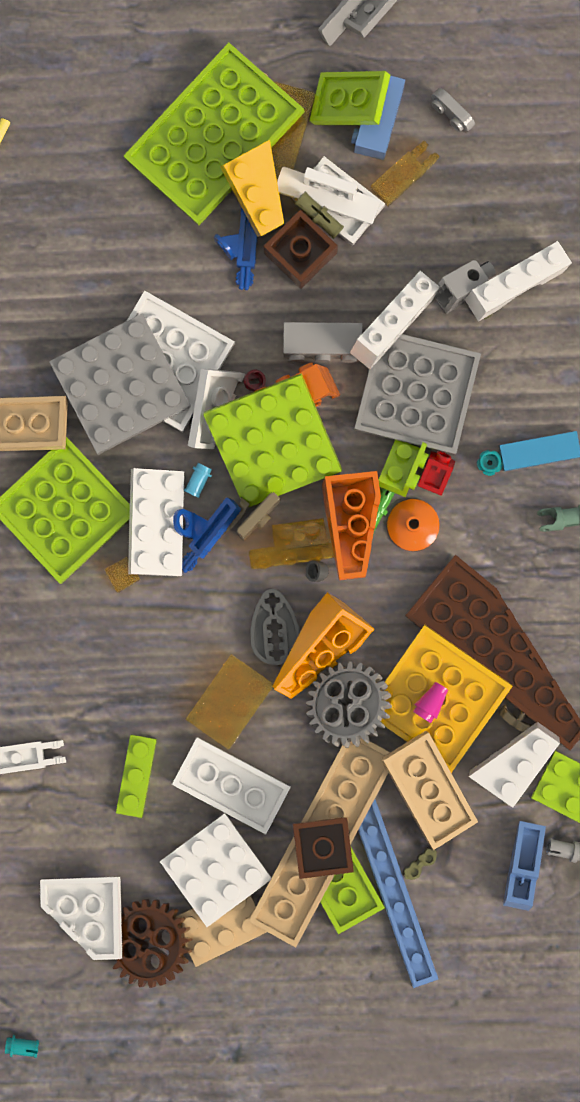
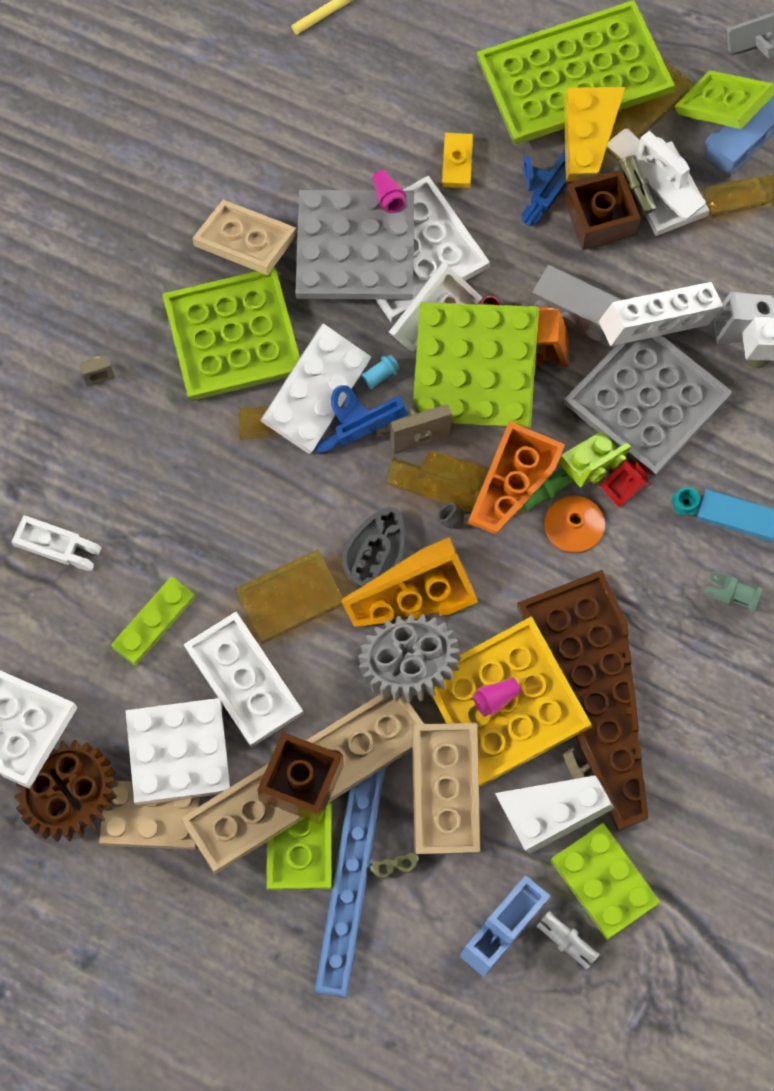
camera: 25 degrees right, 15 degrees down
(125, 330) = (389, 193): none -> dark pink cone
(159, 261) = (457, 160): none -> yellow plate

